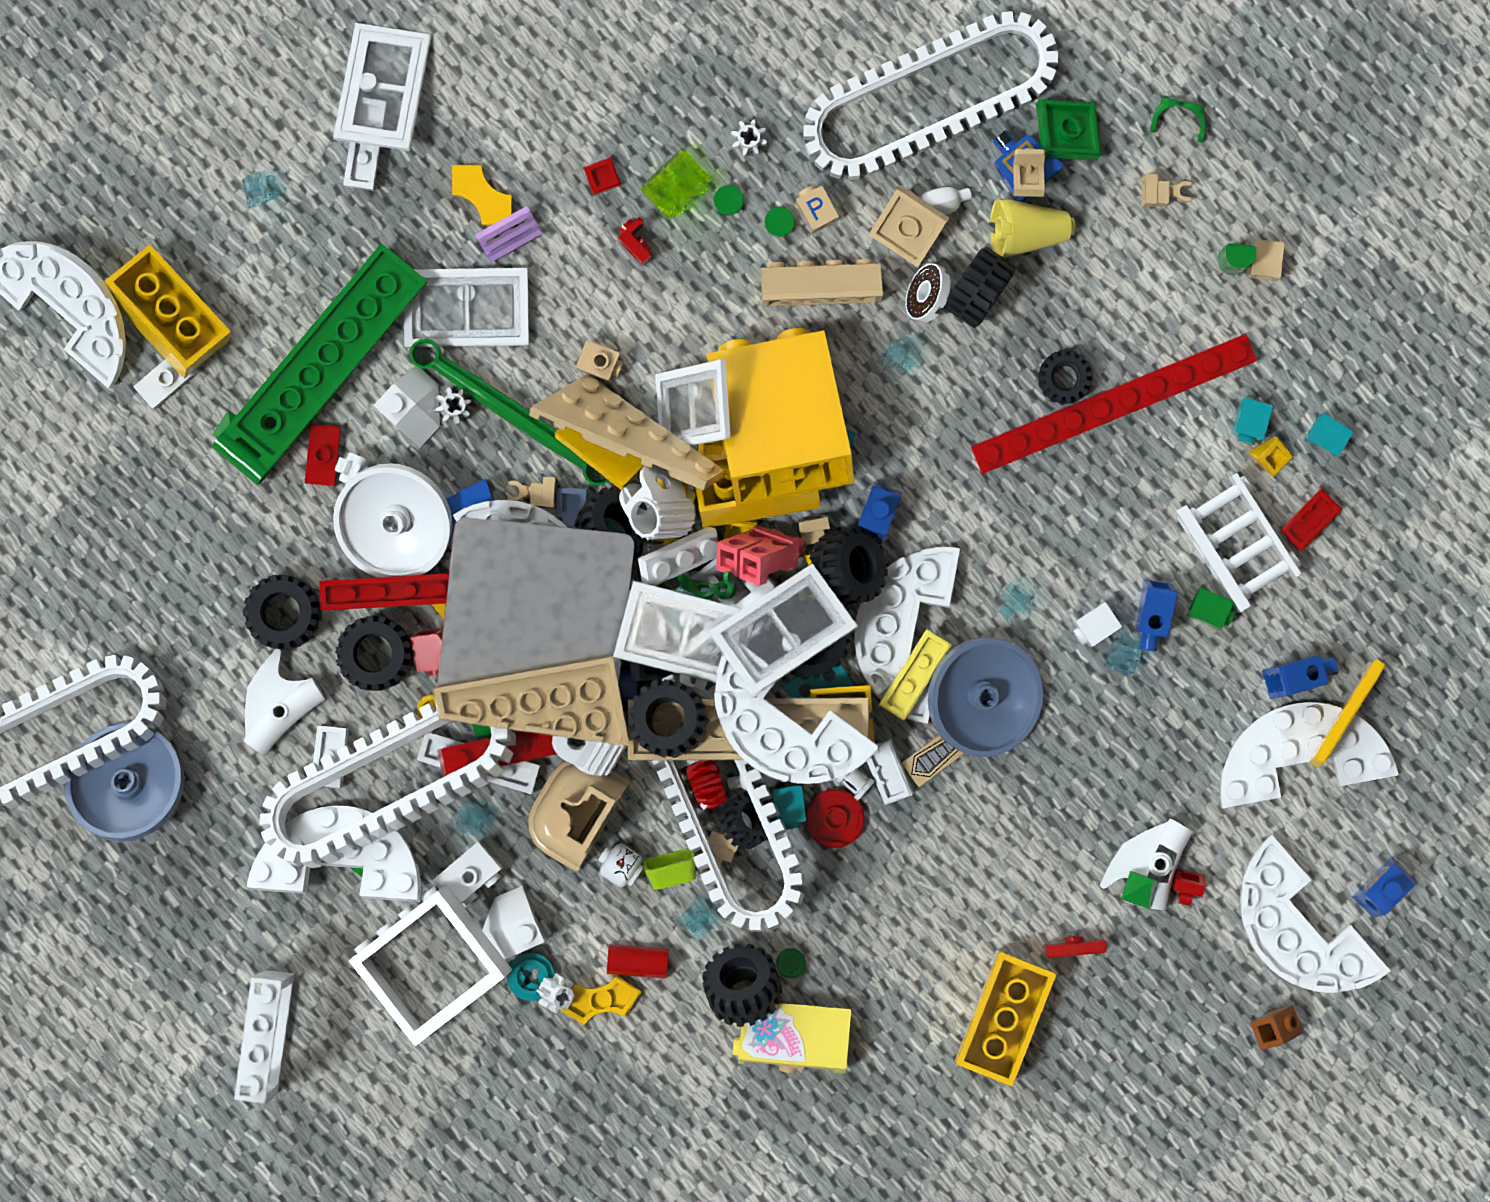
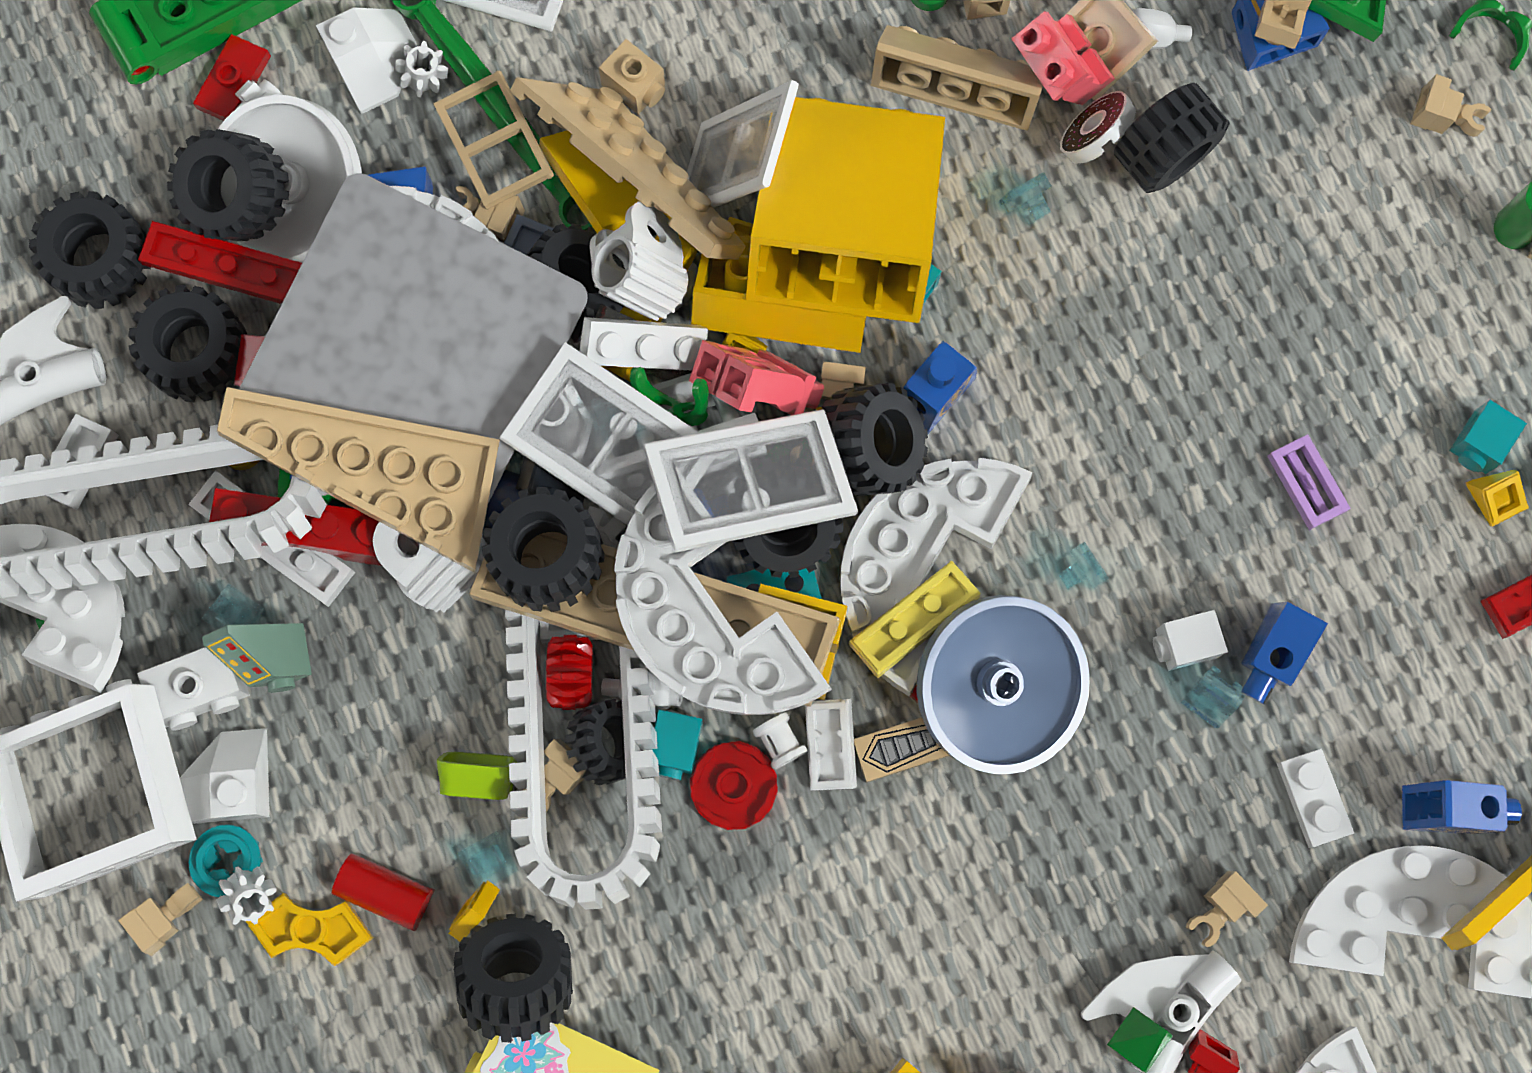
camera: 20 degrees right, 10 degrees down
(351, 560) = (199, 178): none -> black tyre
(502, 1030) = (153, 925): none -> tan piece
(507, 458) = (519, 126): none -> tan window
(508, 841) = (262, 653): none -> sand green slope
(566, 811) = (377, 652): tan piece -> none
(620, 865) = (409, 745): white head -> none
(700, 953) = (473, 910): none -> yellow tile
(790, 963) = (598, 971): green tile -> none
(883, 263) = (1055, 58): none -> coral hips
(1027, 227) = (1258, 90): light yellow cone -> none
(1082, 371) = (1260, 280): black tyre -> none
(1113, 404) = (1300, 357): red plate -> none
(1146, 475) = (1294, 490): none -> lavender tile
(1172, 783) = (1231, 900): none -> tan piece
(1207, 544) = (1390, 624): white fence -> none
(1207, 698) = (1315, 798): none -> white plate
(1211, 609) = (1358, 673): green brick -> none

